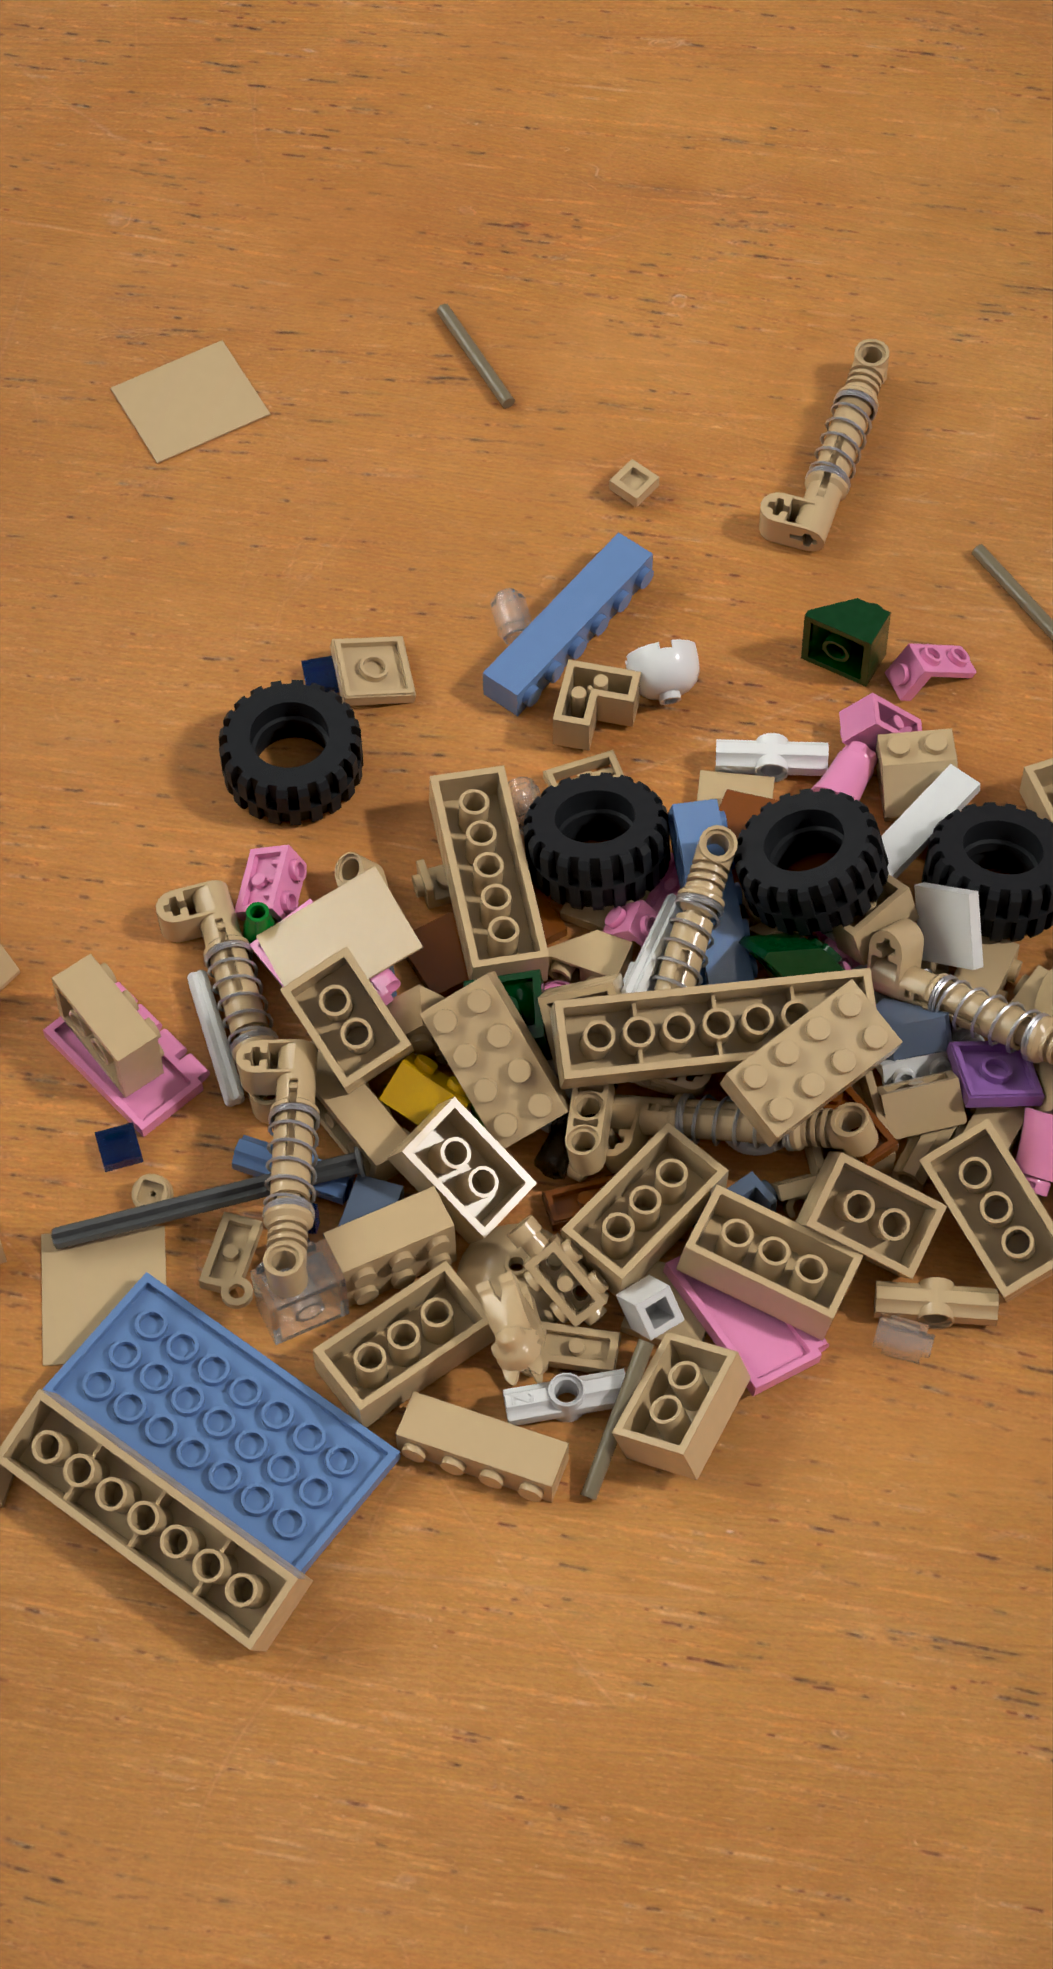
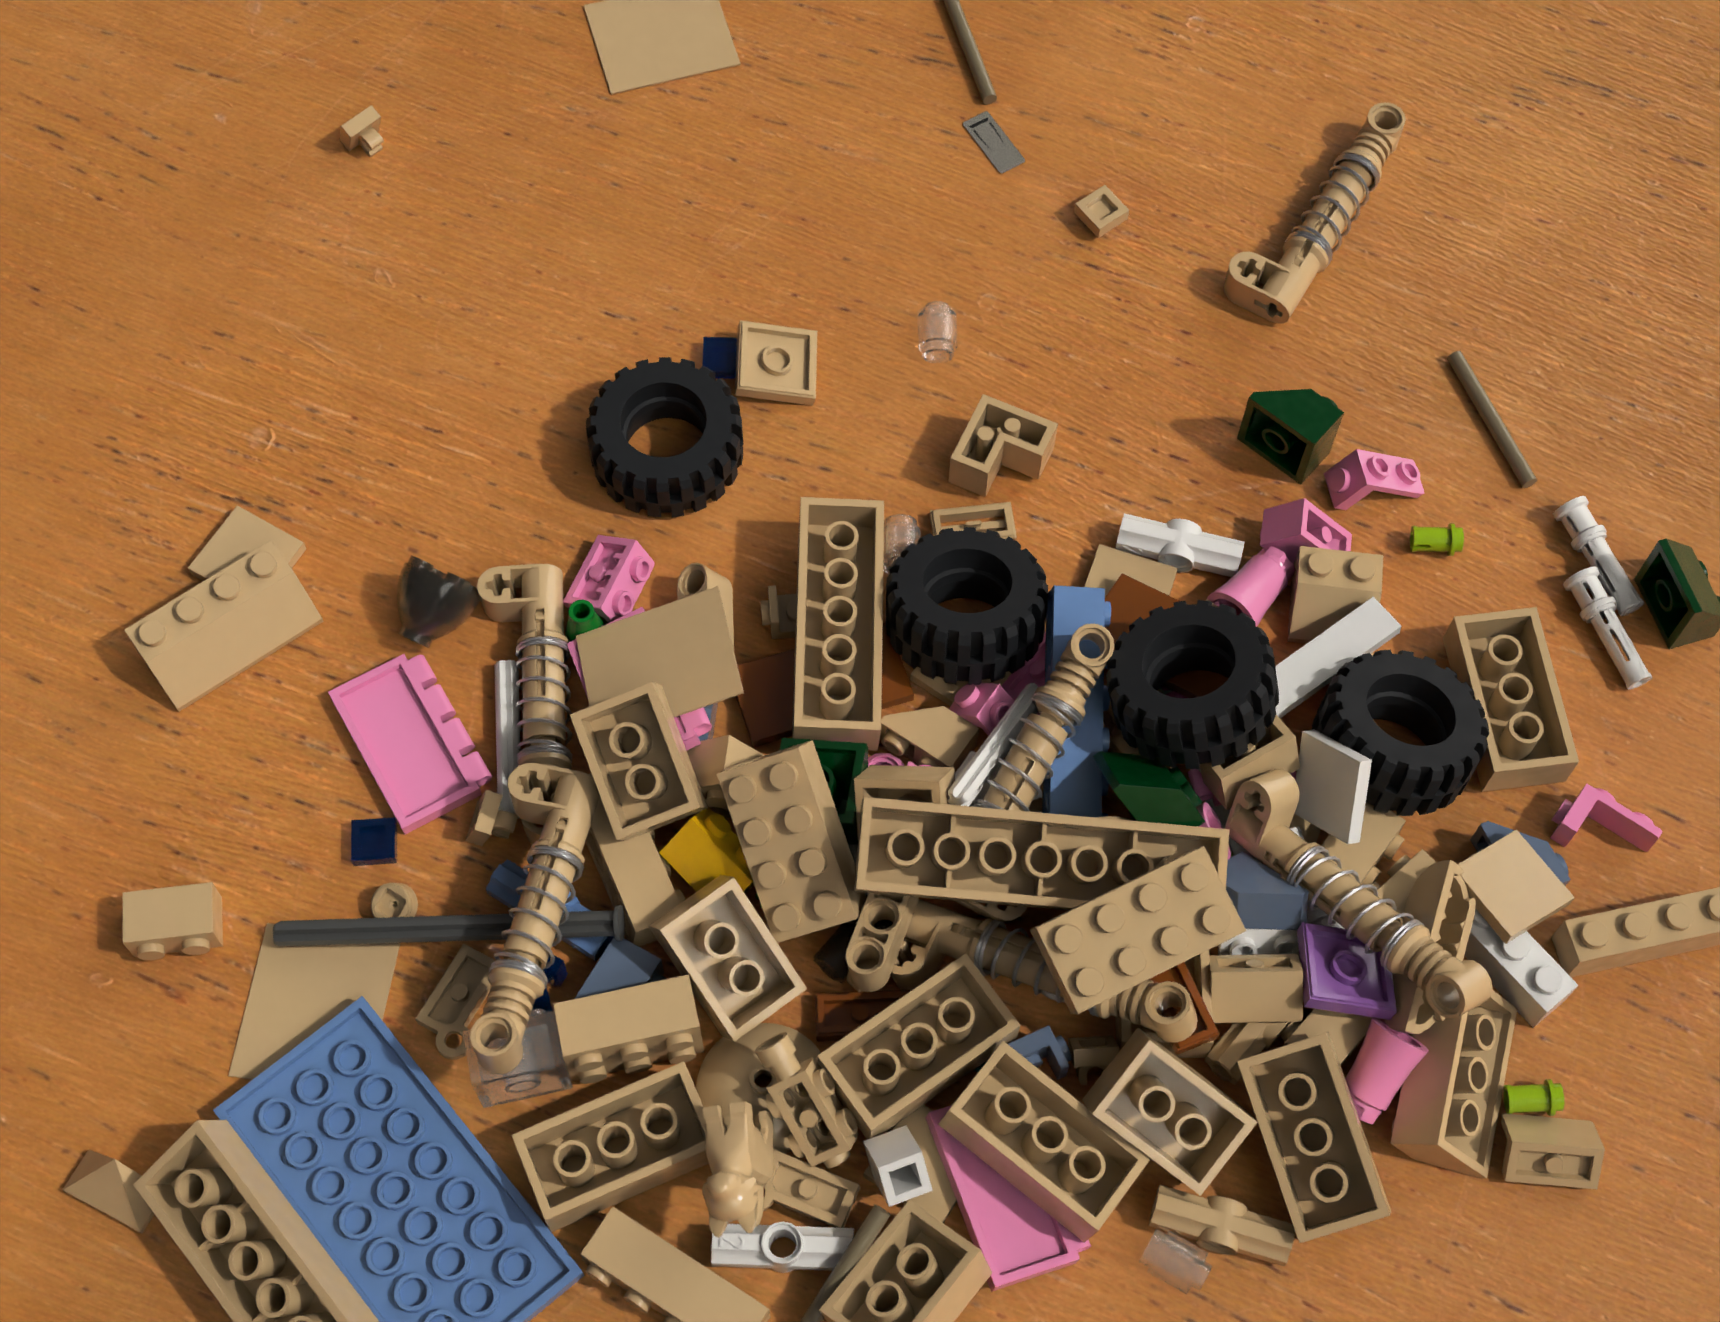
camera: 10 degrees right, 5 degrees up
(109, 1024) = (392, 705): tan brick -> none
(119, 932) = (432, 602): none -> clear smoke piece
(218, 1106) = (490, 820): none -> tan tile
(521, 440) = (994, 142): none -> clear smoke sticker
(568, 624) = (995, 353): medium blue brick -> none
(665, 671) = (1086, 426): white cylinder -> none
(996, 708) = (1437, 539): none -> lime pin

